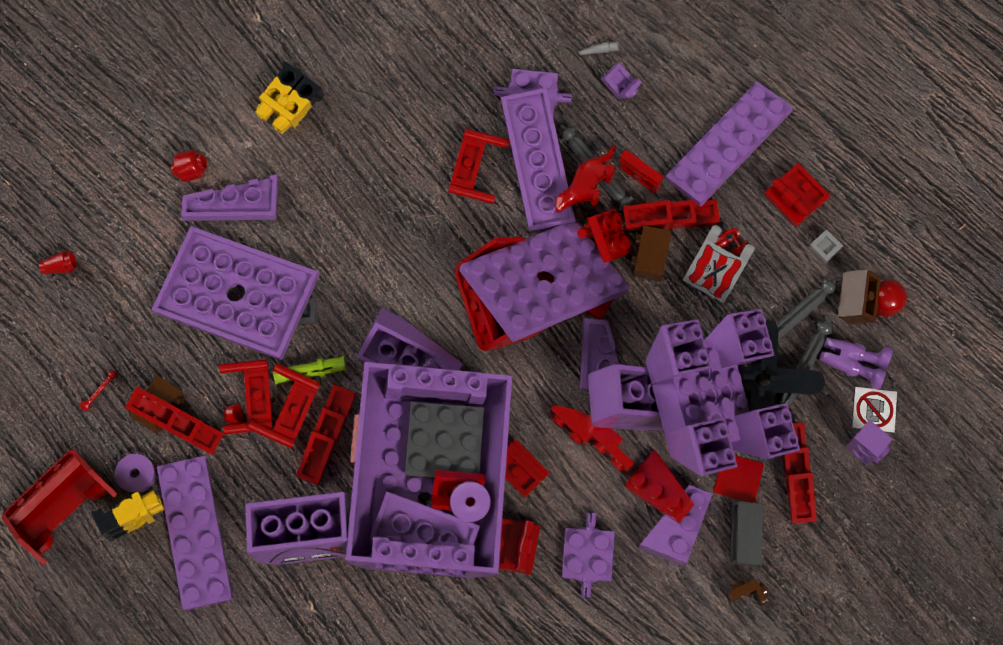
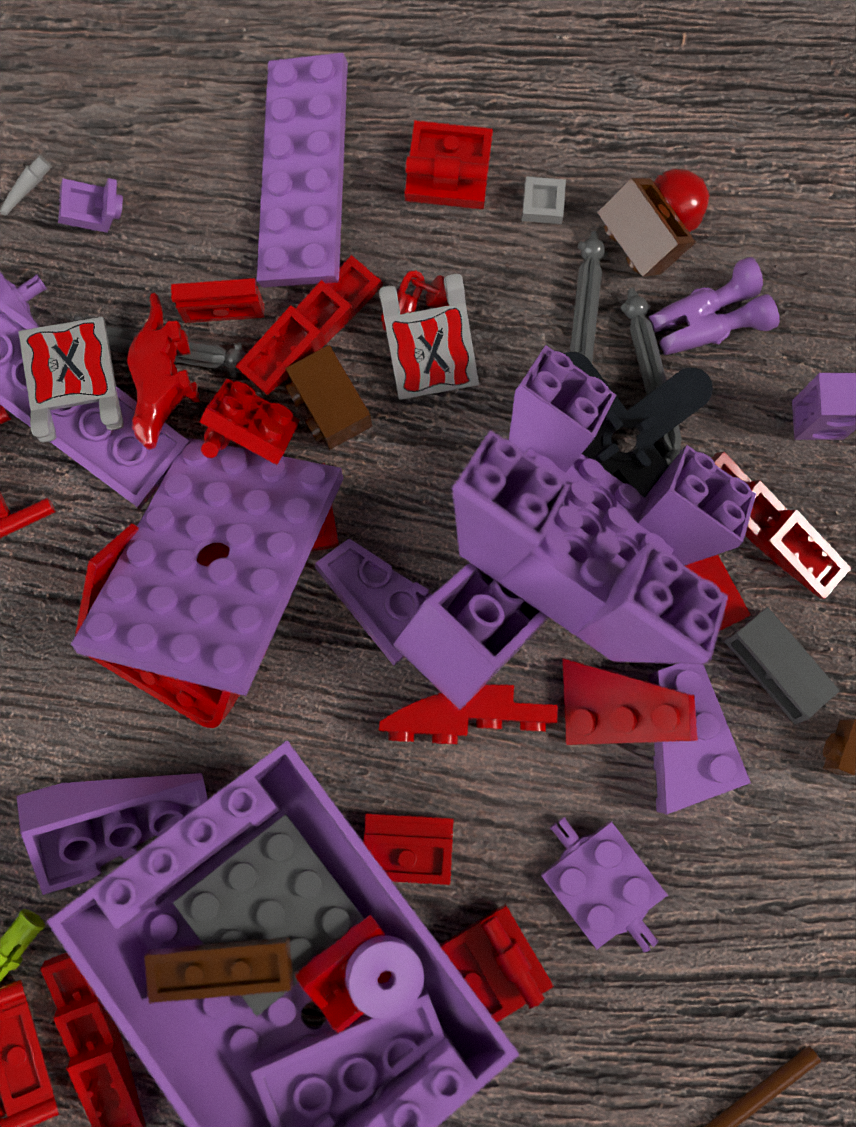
camera: 40 degrees left, 5 degrees up
(408, 441) = (219, 970): none -> reddish brown hinge
(552, 149) = (66, 369): none -> flag
(875, 406) = (786, 358): sticker -> none

